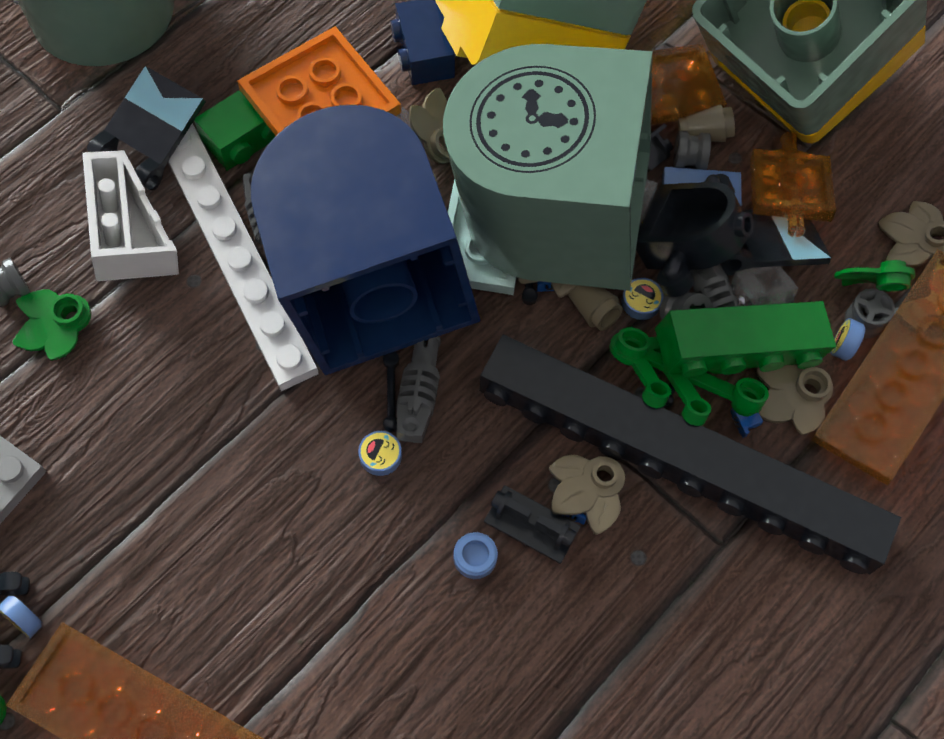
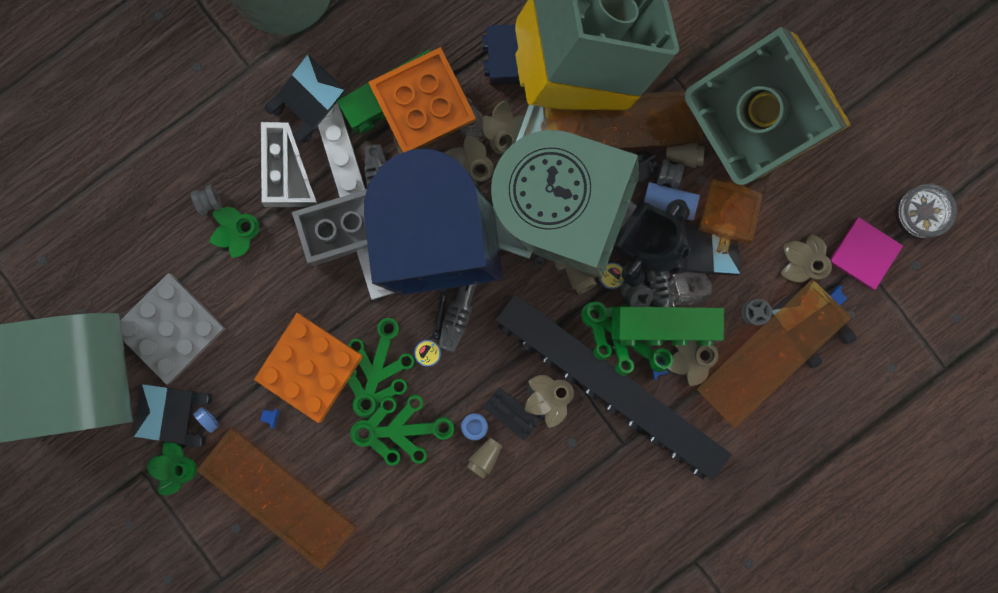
camera: 15 degrees right, 20 degrees up
(131, 597) = (270, 417): none -> blue piece
(188, 505) = (308, 367): none -> orange plate
(211, 284) = (332, 228): none -> light grey slope
(301, 495) = (376, 373): none -> green plant
(349, 579) = (397, 431): none -> green plant
(501, 603) = (484, 458): none -> dark tan cone
(848, 339) = (736, 329): medium blue tile -> none
(890, 277) = (772, 296): green plate -> none

